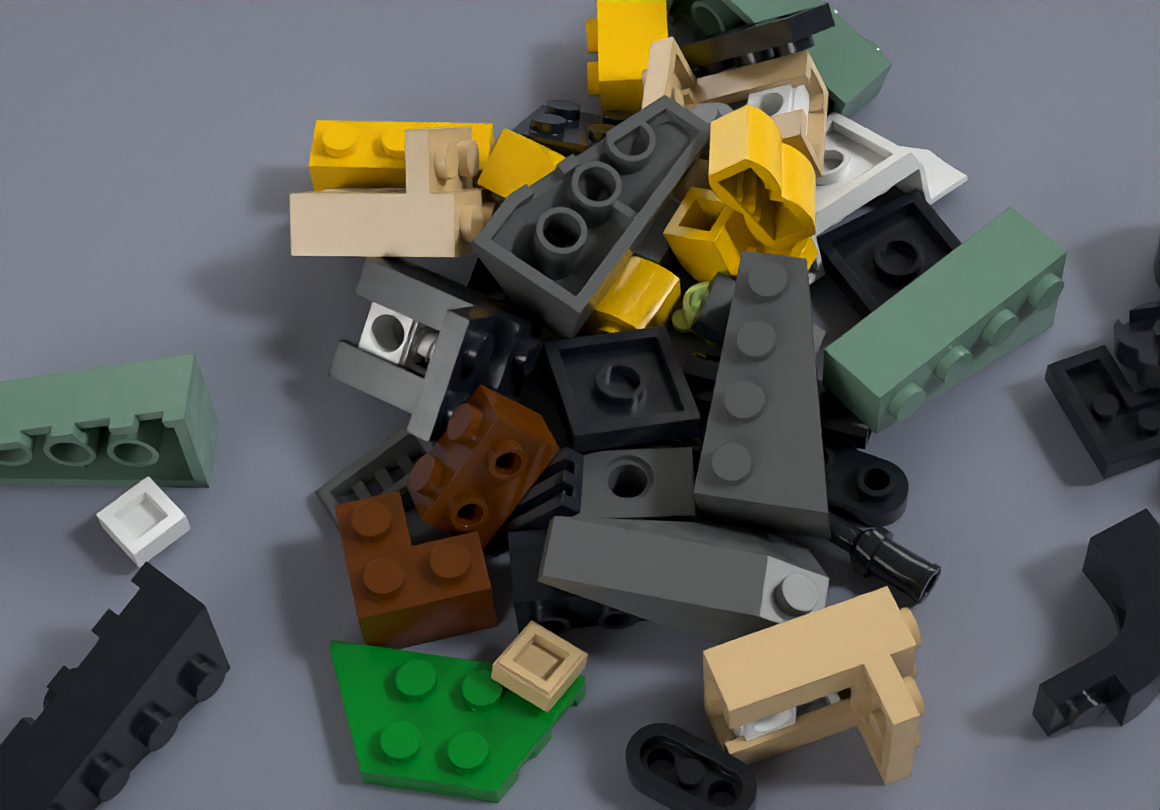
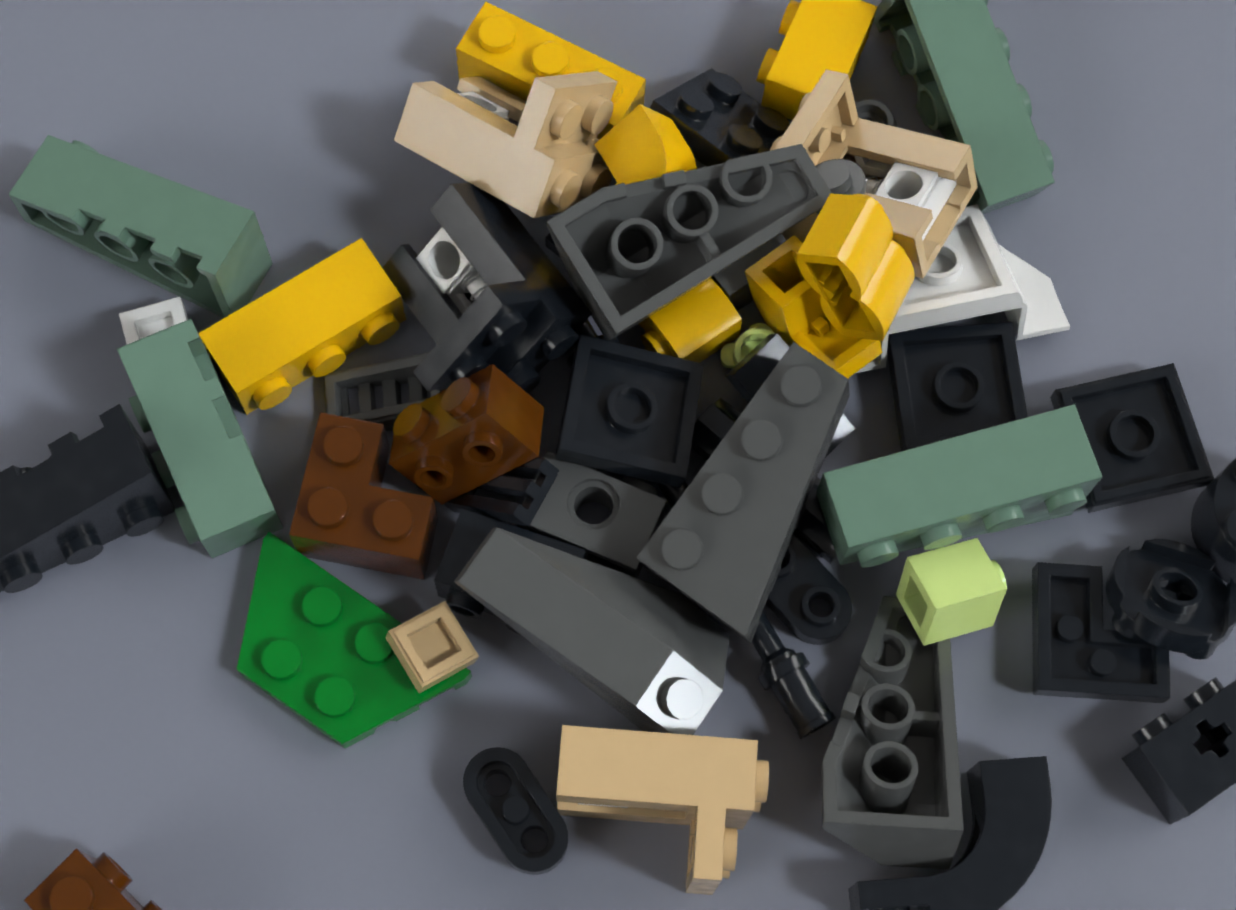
camera: 15 degrees right, 15 degrees up
(252, 598) = (198, 440): none -> sand green wedge
(278, 455) = (304, 327): none -> yellow brick
(755, 40) = (929, 107): black plate -> none
(985, 418) = (951, 591): none -> yellowish green brick
(1013, 564) = (895, 751): none -> dark grey wedge
(1093, 229) = (1138, 436): none -> black plate

